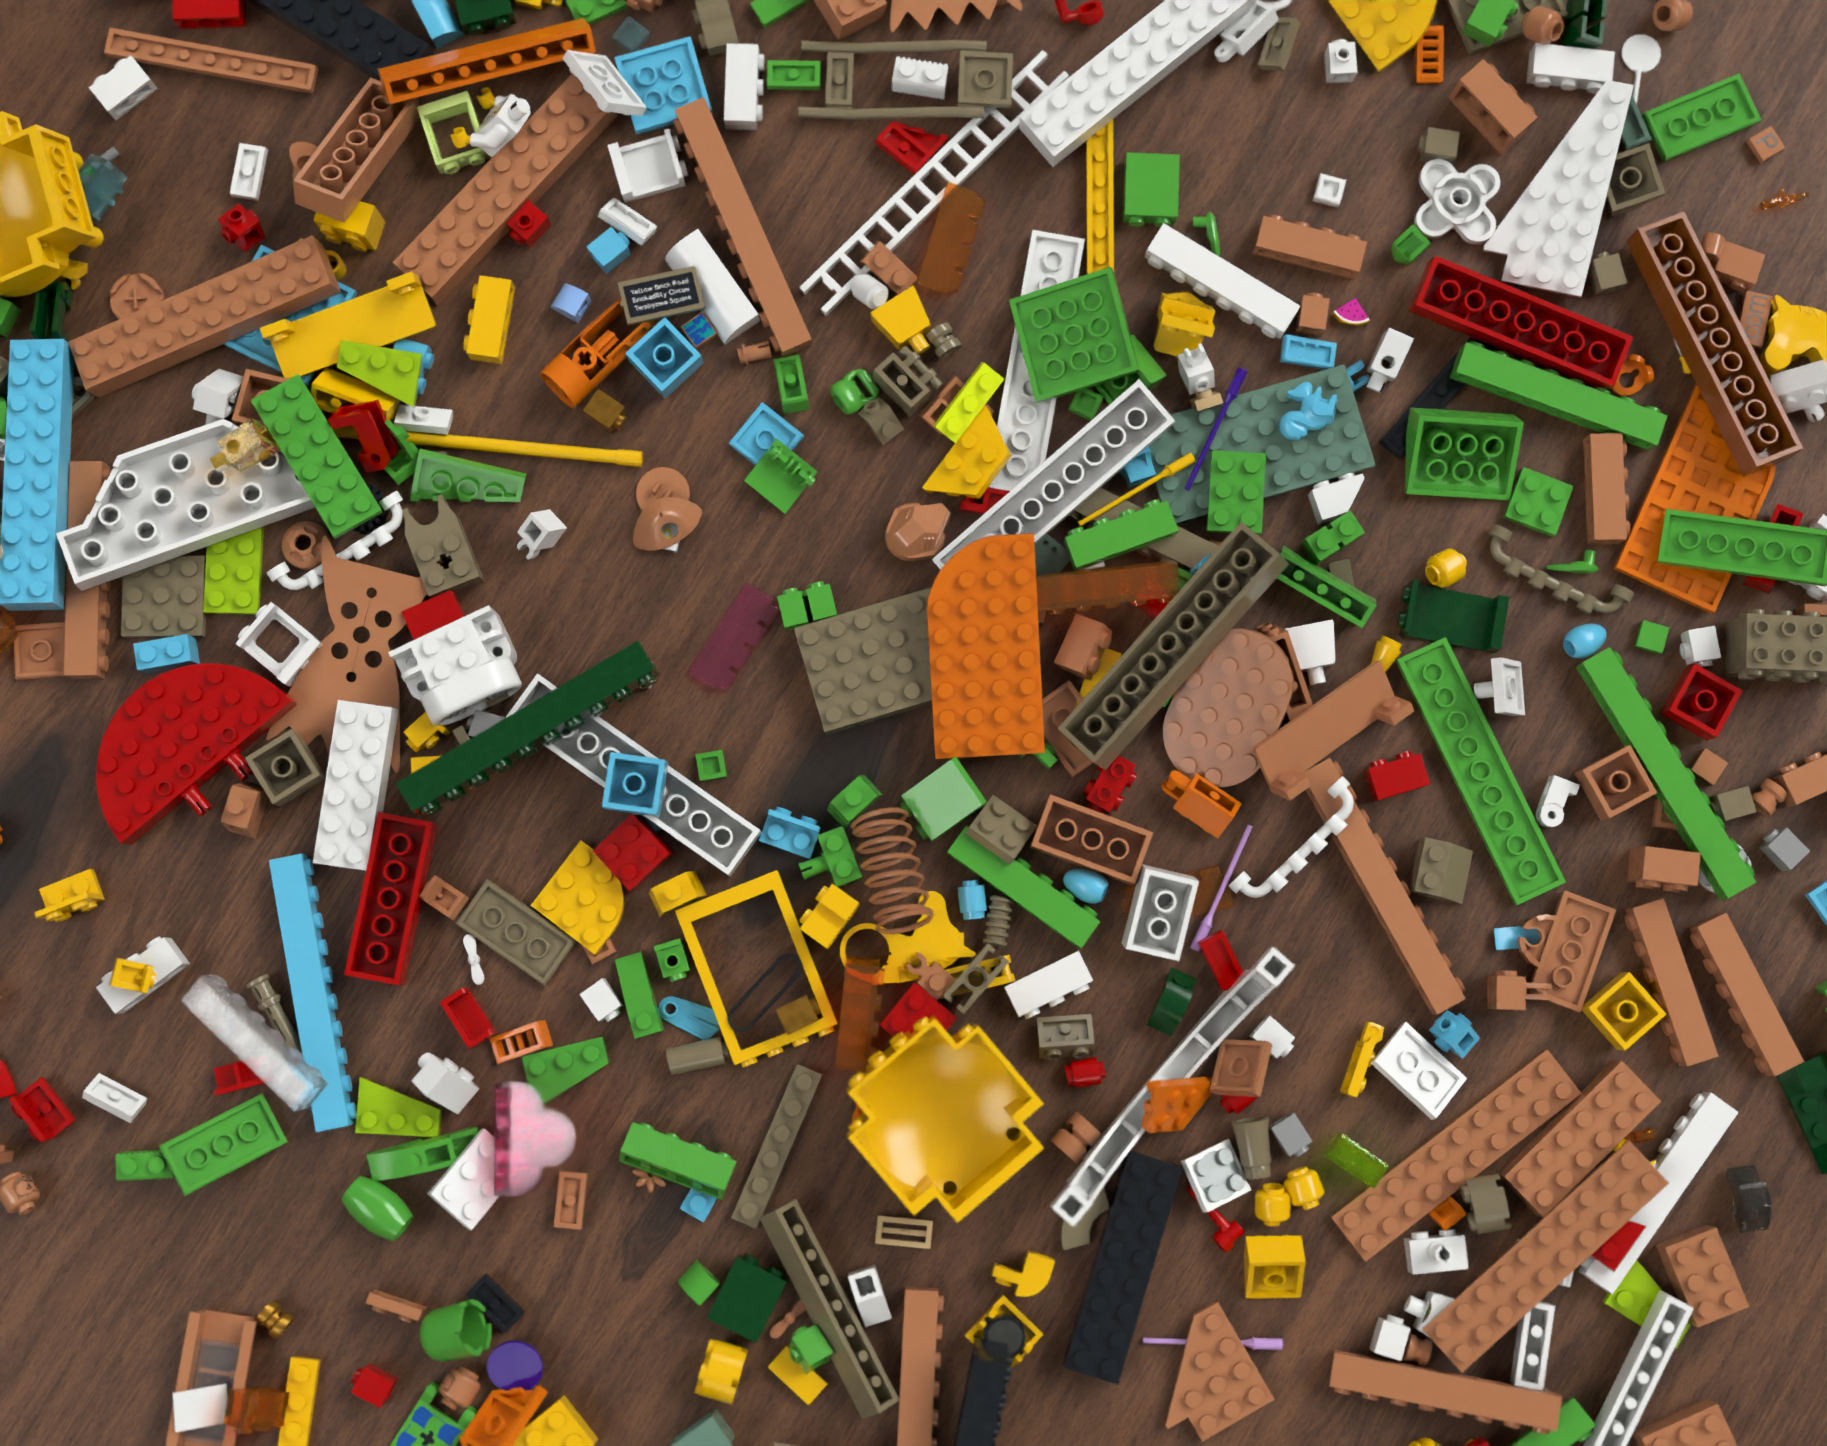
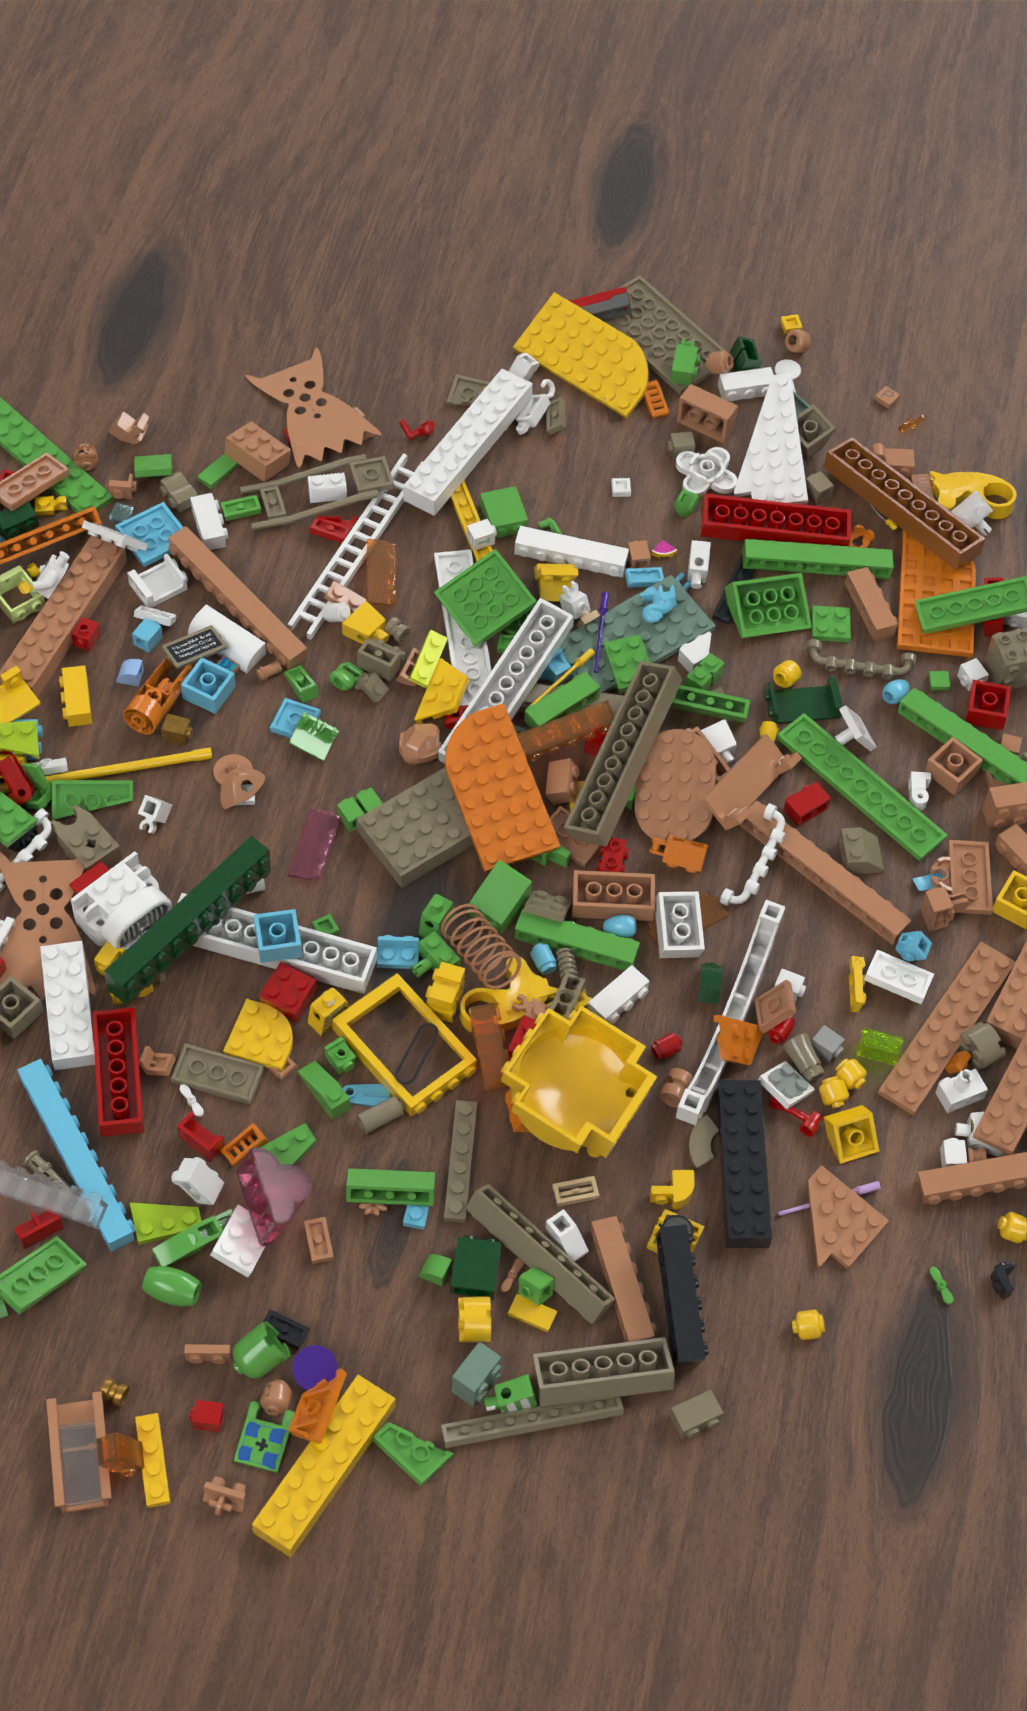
camera: 20 degrees left, 25 degrees down
(199, 1407) = (74, 1470): white sticker -> none
(602, 1000) = (297, 1097): white brick -> none
(798, 1014) = (446, 1056): pearl gold brick -> none
(1065, 1037) = (645, 1026): dark tan bracket -> none
(1105, 223) = (481, 534): none -> white brick
(1206, 923) = (714, 929): lavender piece -> none
(1221, 959) = (731, 947): red tile -> none
(1309, 246) = (621, 519): nougat brick -> none
(1340, 61) = (599, 416): white brick -> none
(1581, 567) = (876, 652): bright green bar -> none
(1701, 117) = (841, 391): bright green piece -> none

